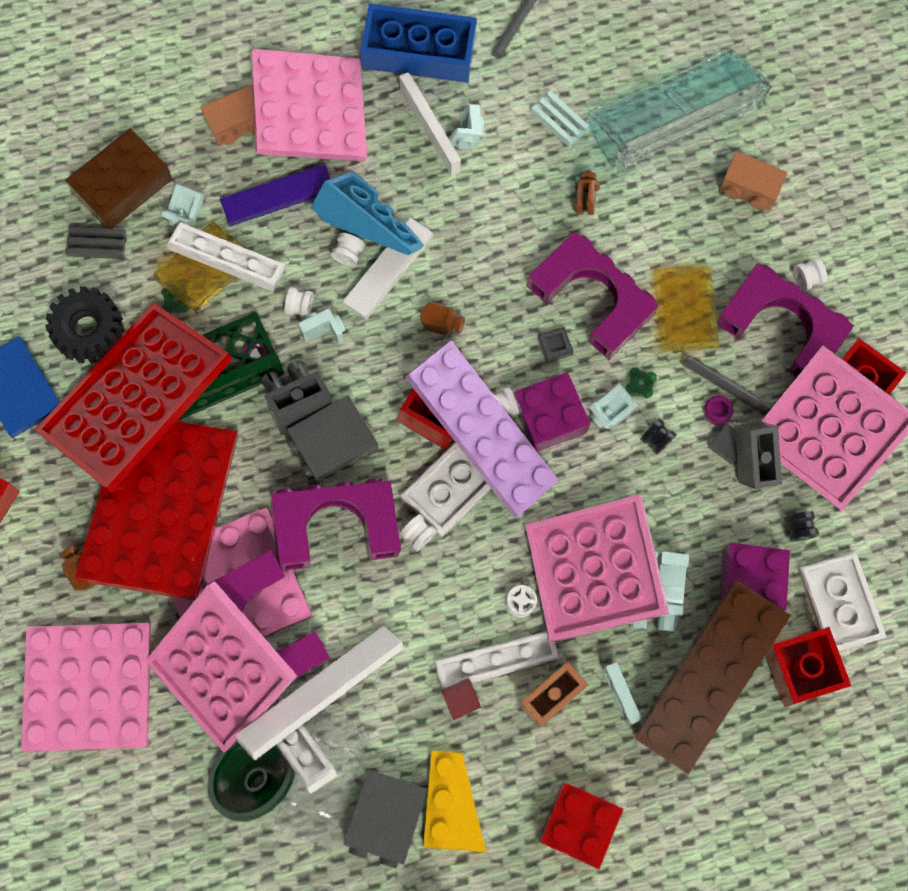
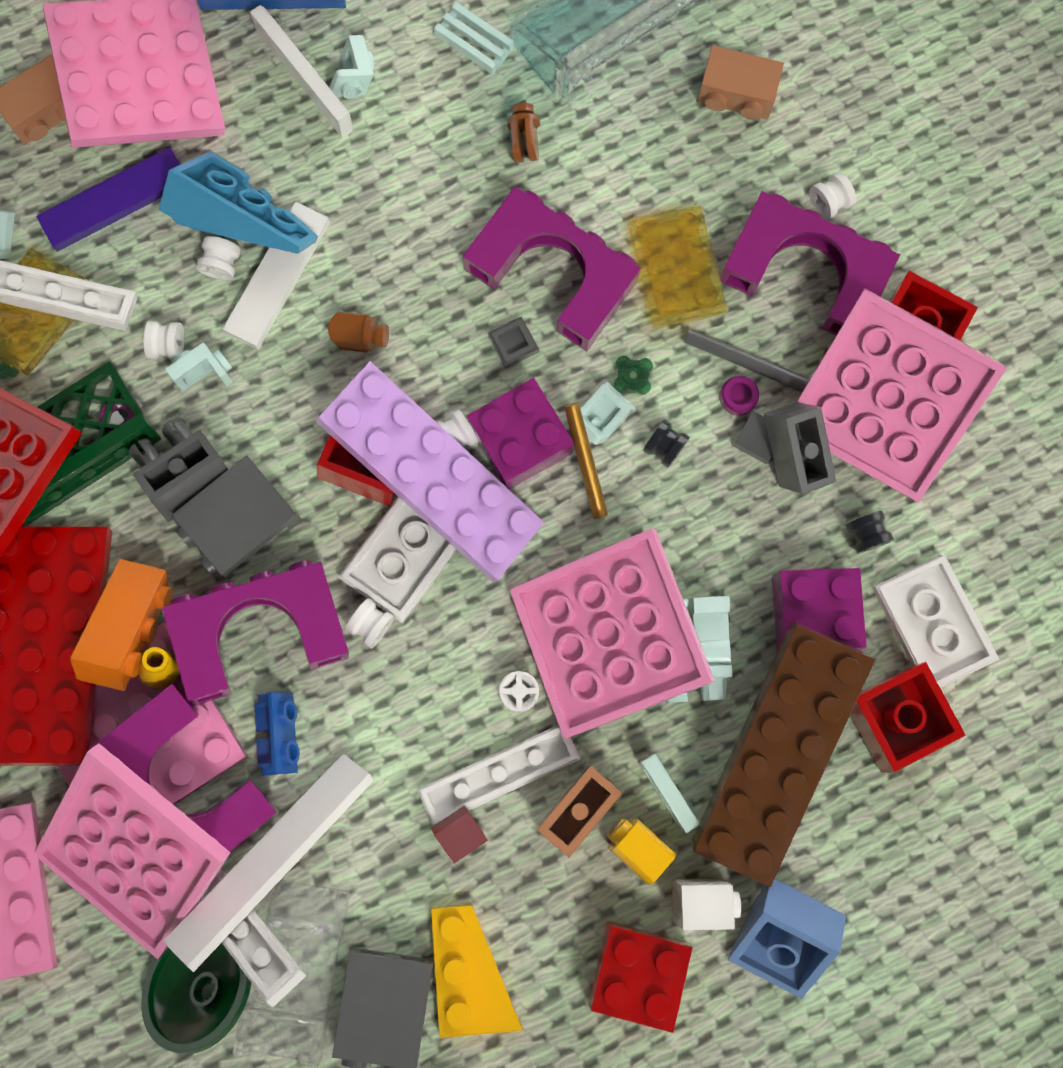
camera: 10 degrees left, 5 degrees up
(239, 503) = (121, 625): none -> orange brick
(260, 543) = (160, 676): none -> yellow cone
(339, 588) = (279, 752): none -> blue hinge
(594, 730) = (640, 849): none -> yellow brick
(597, 439) = (586, 460): none -> pearl gold bar
(637, 778) = (705, 904): none -> white brick
(695, 818) = (788, 938): none -> medium blue slope

